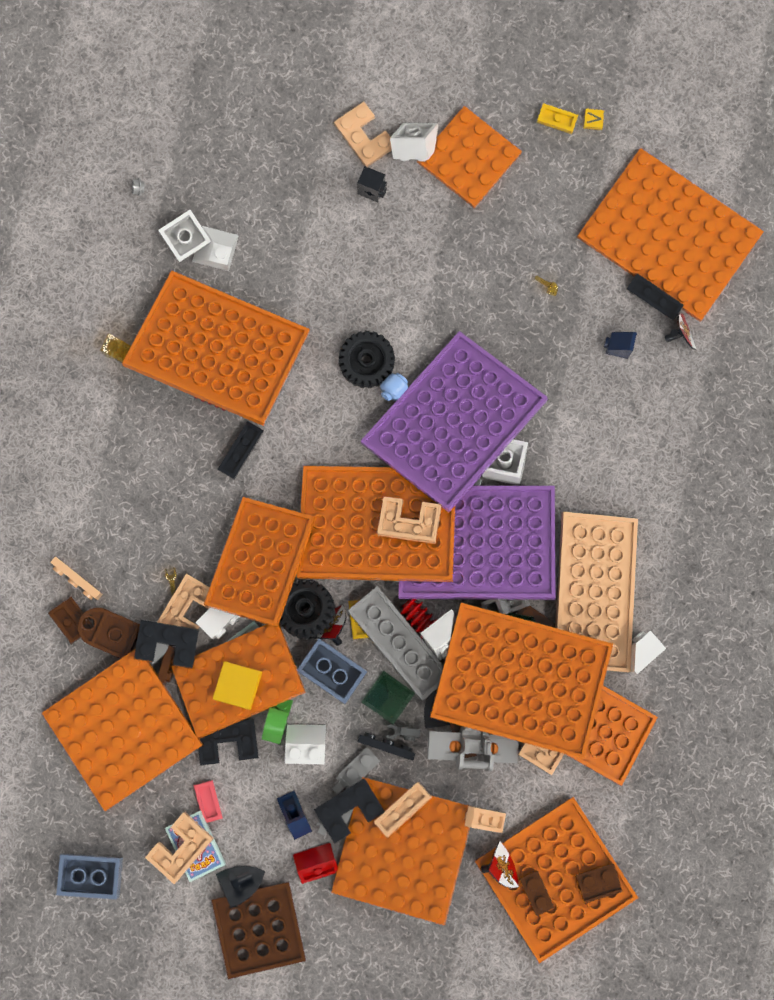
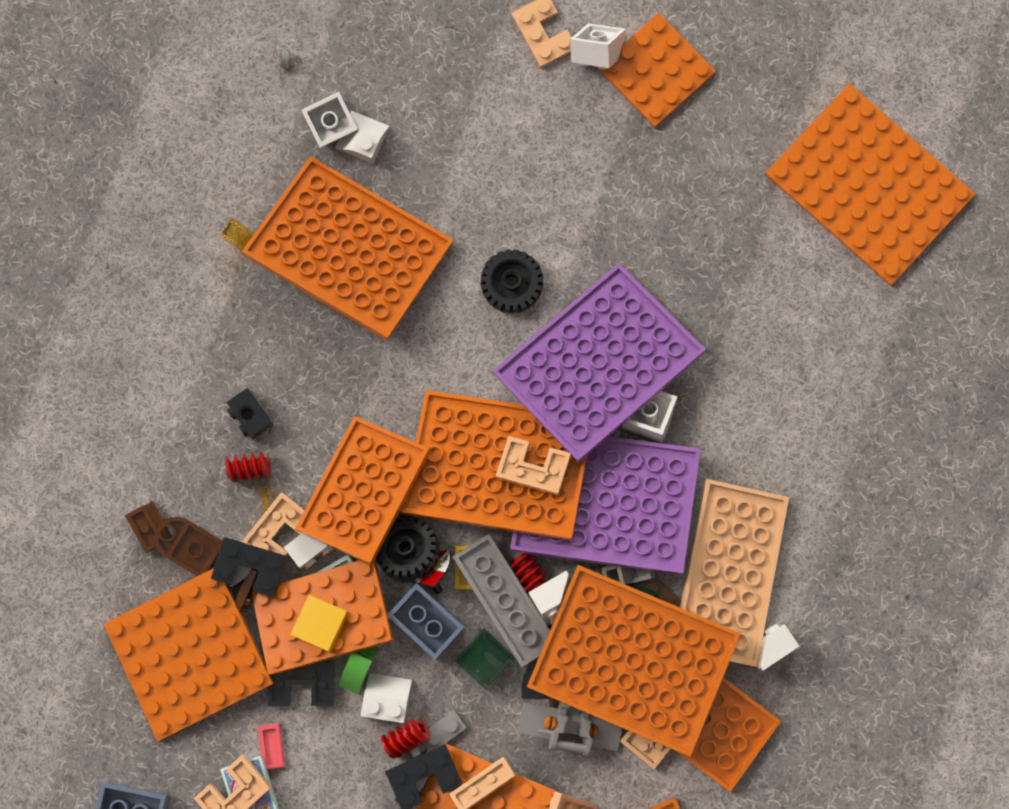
camera: 20 degrees right, 0 degrees up
(75, 579) = (160, 482): light nougat plate -> none
(142, 497) = (246, 401): none -> black brick
(153, 555) = (248, 467): none -> red piece
(240, 450) = (359, 364): black plate -> none
(294, 815) = (363, 774): dark blue slope -> none
(329, 778) = (405, 738): none -> red piece
(371, 184) = (543, 88): black brick -> none
(387, 746) = (475, 712): black plate -> none
(393, 387) = (537, 315): light blue head -> none
(408, 733) = (501, 701): dark grey plate -> none
(552, 286) = (729, 227): clear yellow hand -> none
(557, 118) = (760, 39): yellow plate -> none
(593, 119) = (801, 44): yellow tile -> none
(620, 344) = (795, 299): dark blue slope -> none
(655, 296) = (842, 252): black plate -> none
(682, 332) = (868, 294): shield -> none

